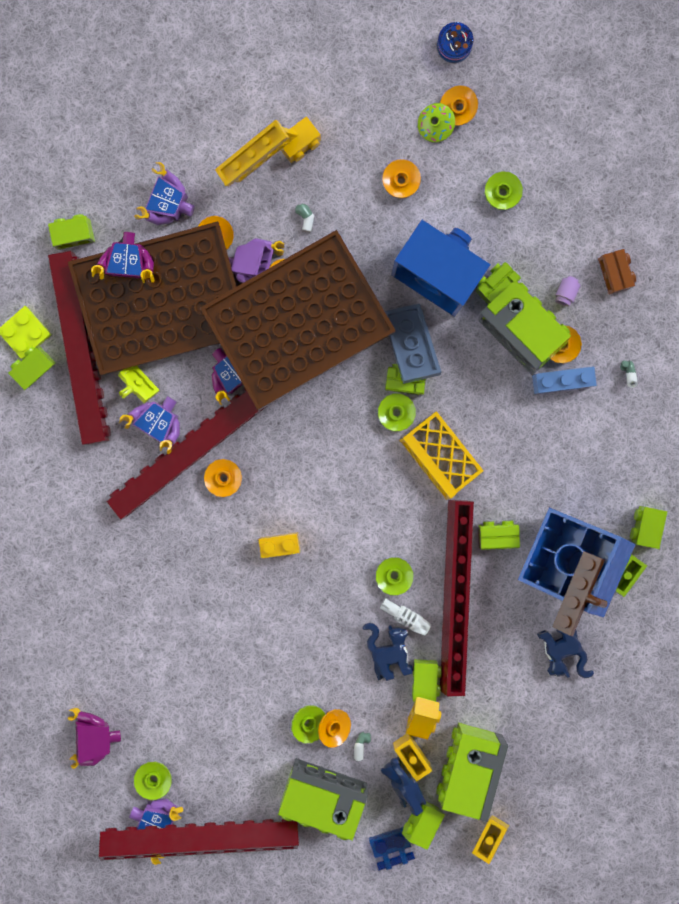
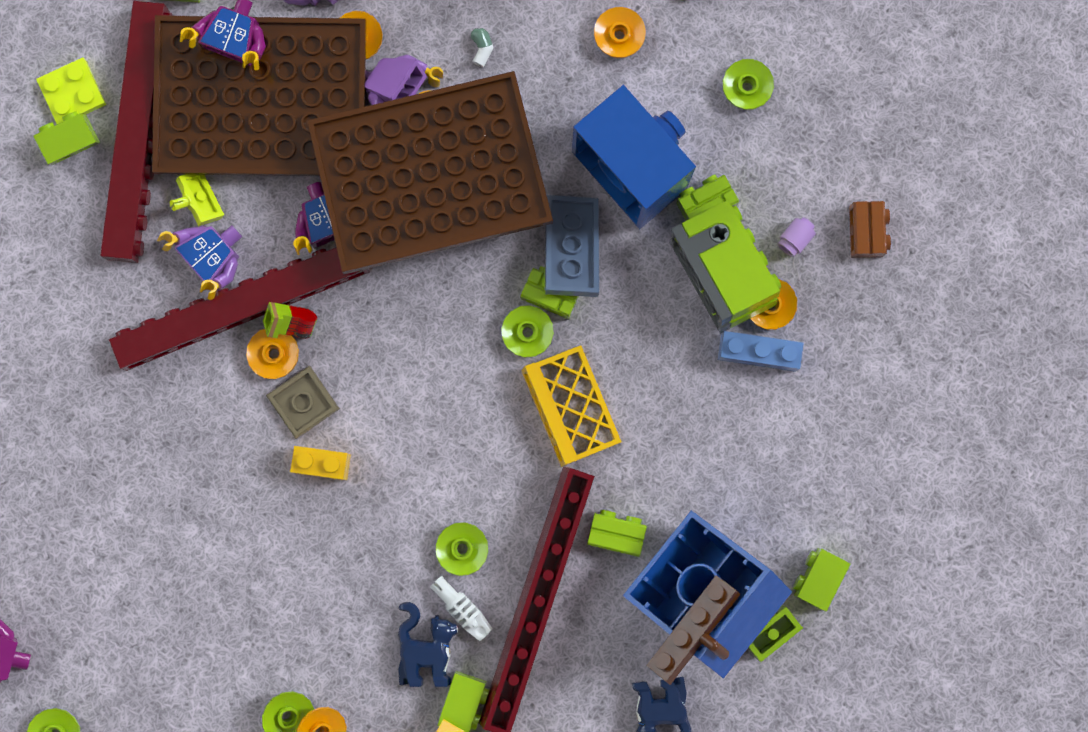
camera: 20 degrees right, 5 degrees down
(228, 452) = (289, 321): none -> leg
(254, 505) = (303, 402): none -> dark tan tile
(631, 376) = (852, 368): arm -> none

